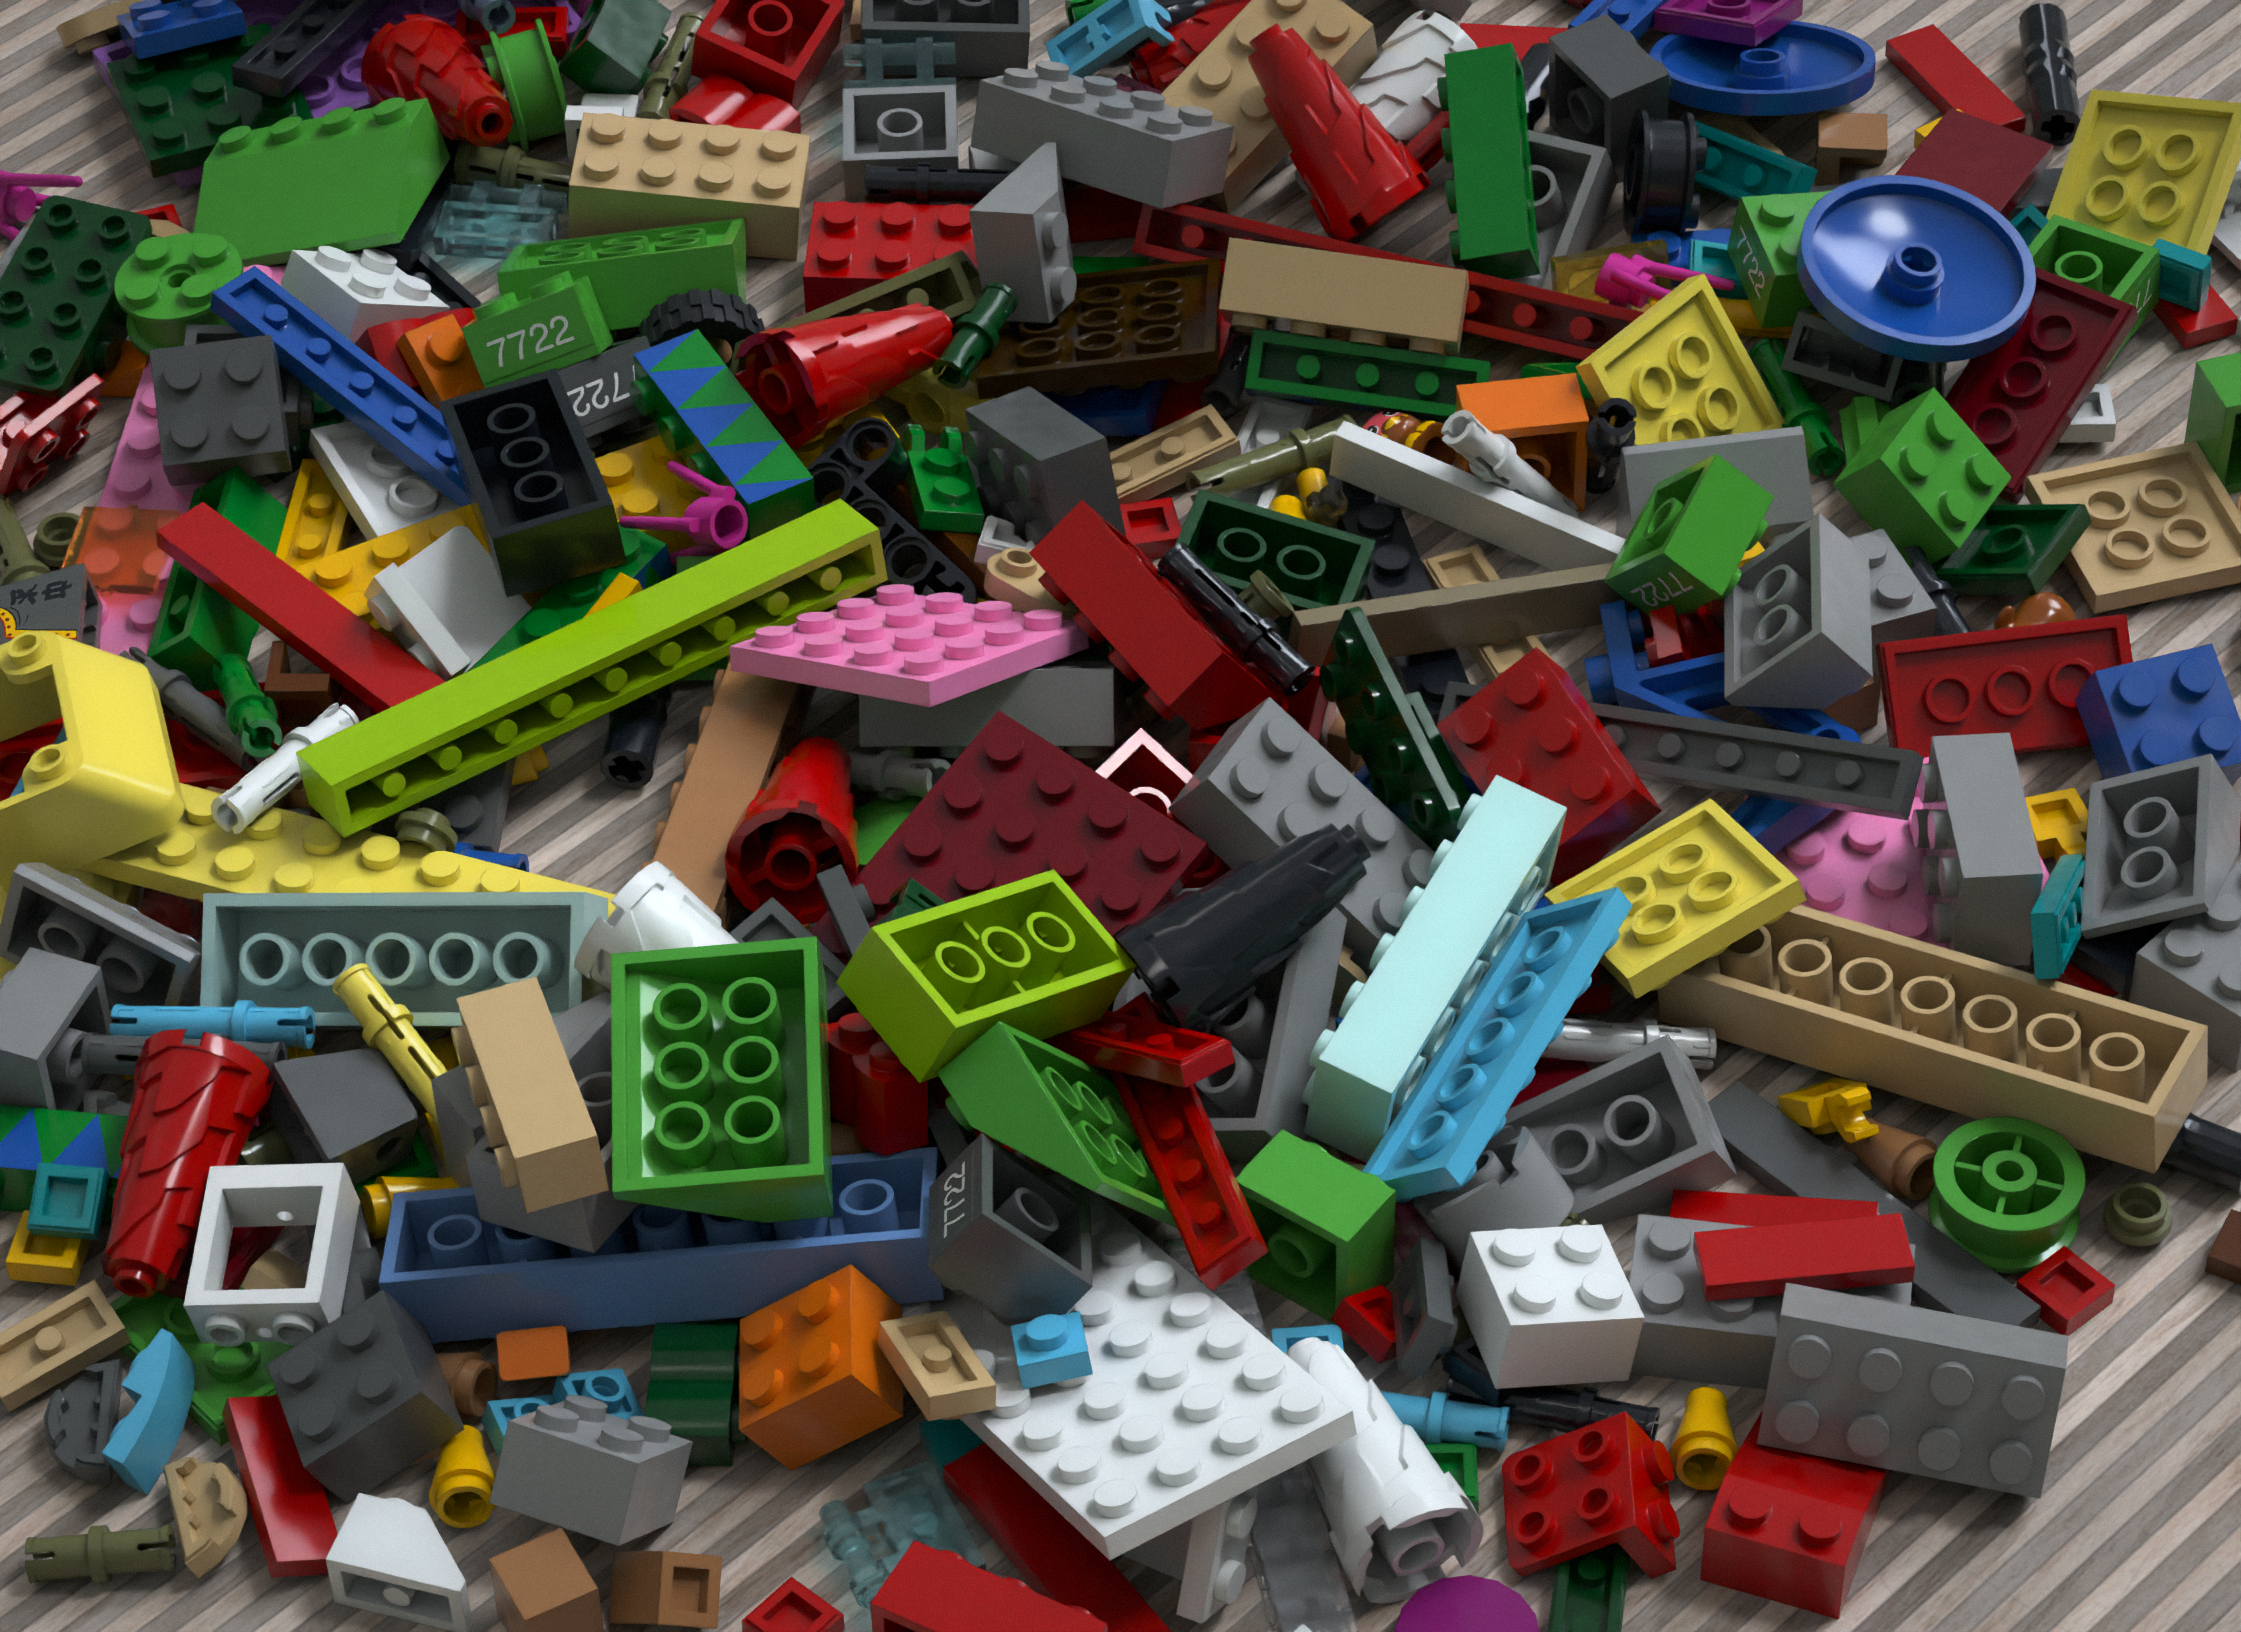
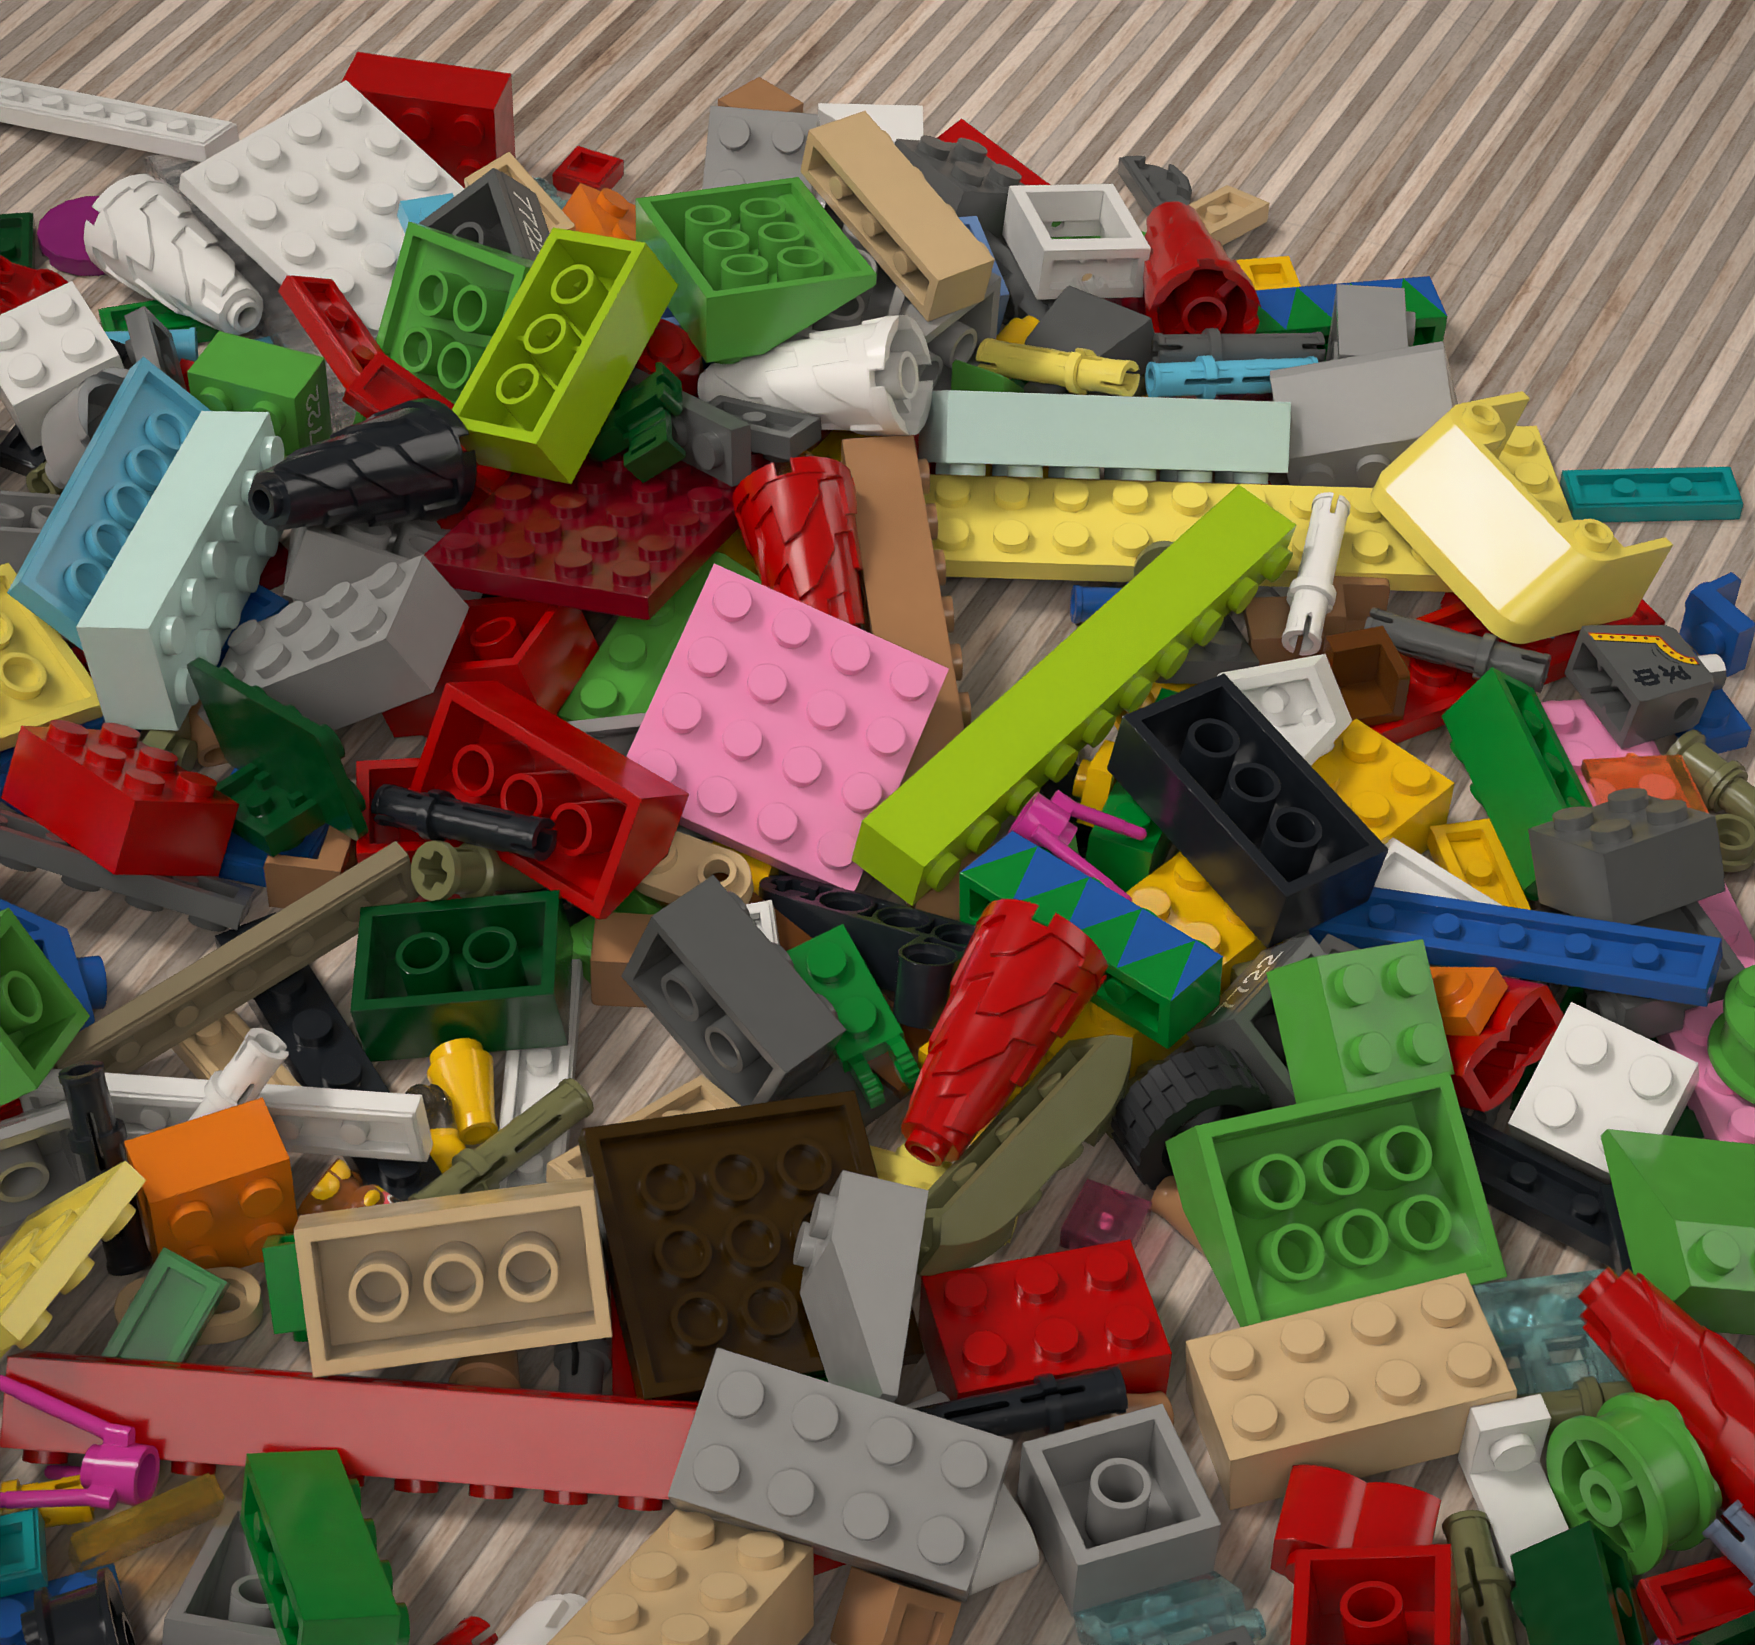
camera: 160 degrees right, 0 degrees up
(68, 1201) = (1269, 271): teal tile -> none
(100, 1554) = (1092, 124): olive pin -> none
(162, 1388) = (1113, 169): medium azure slope -> none
(207, 1510) = (1040, 155): tan plate -> none
(246, 706) = (1379, 602): green pin -> none
(294, 609) = (1419, 701): red tile -> none
(665, 1589) = (678, 157): medium nougat panel -> none
(975, 335) = (878, 1137): dark green pin -> none
(1151, 526) = (623, 1083): red tile -> none
(1335, 142) = (503, 1539): red cone -> none

